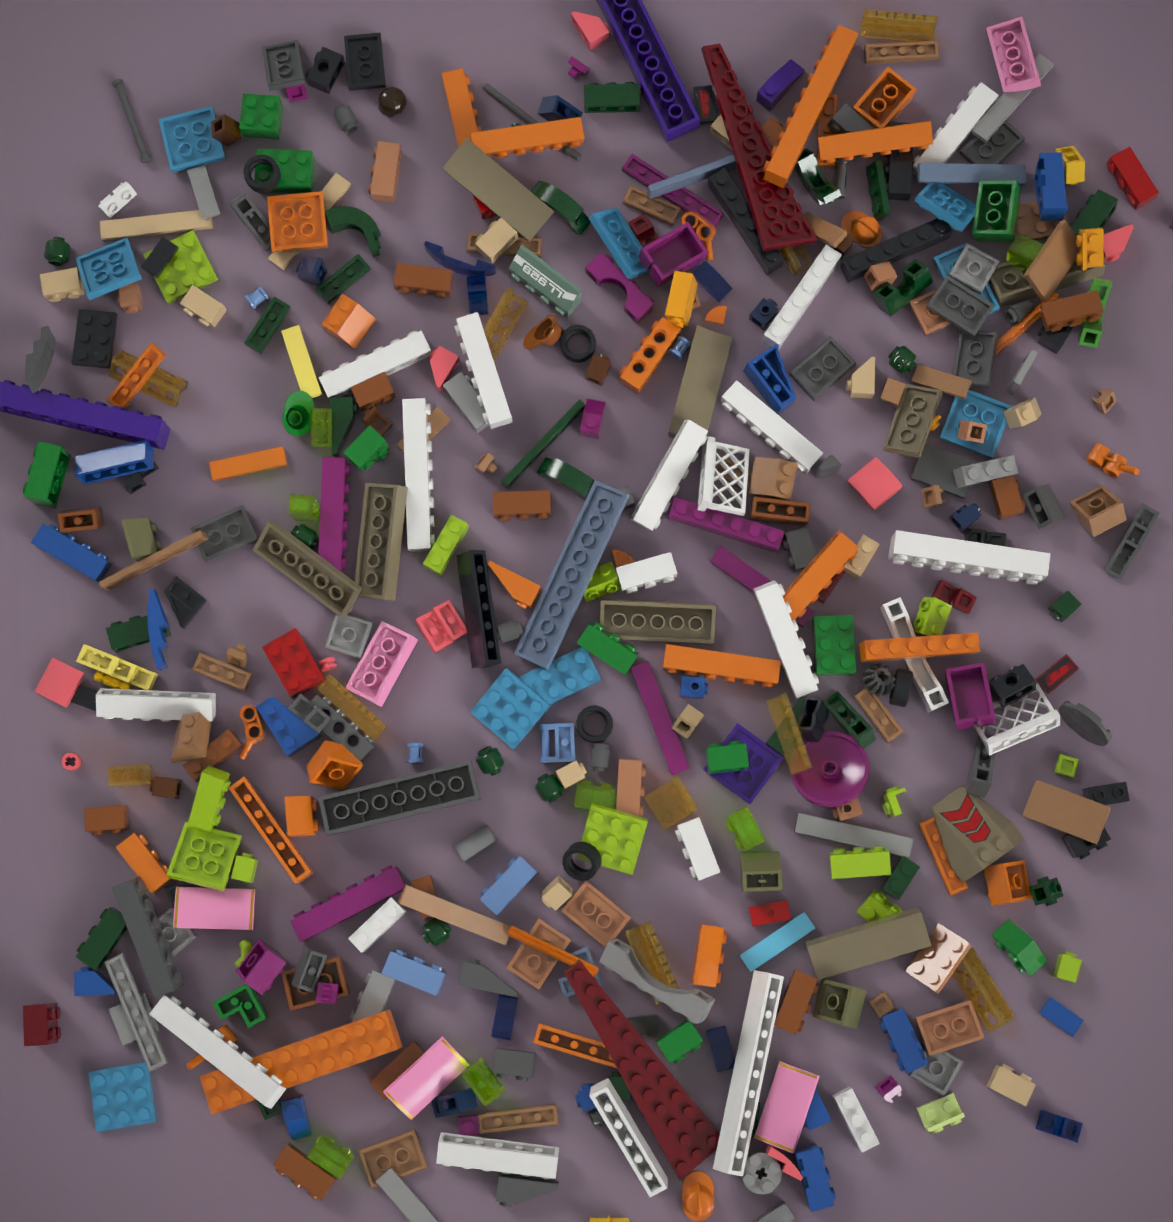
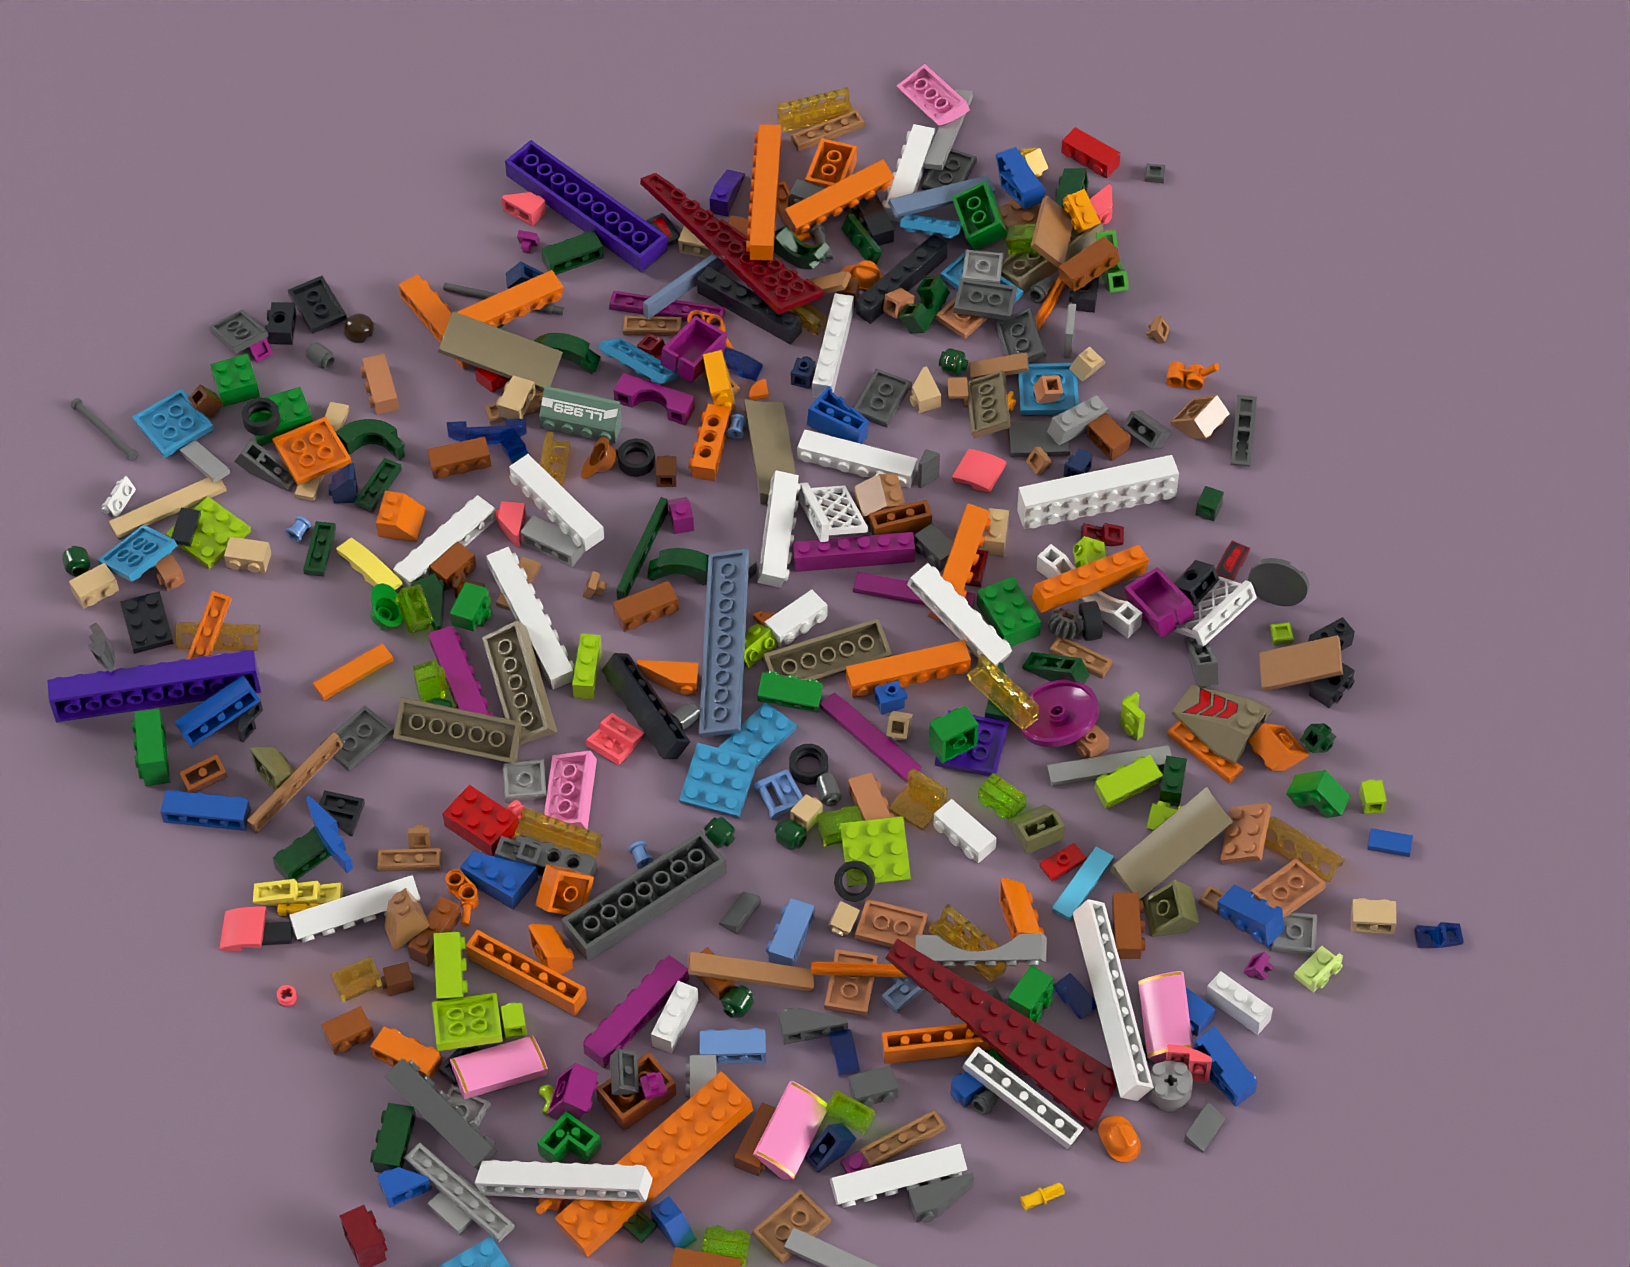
camera: 25 degrees left, 25 degrees down
(812, 719) = (1020, 674): black brick -> none

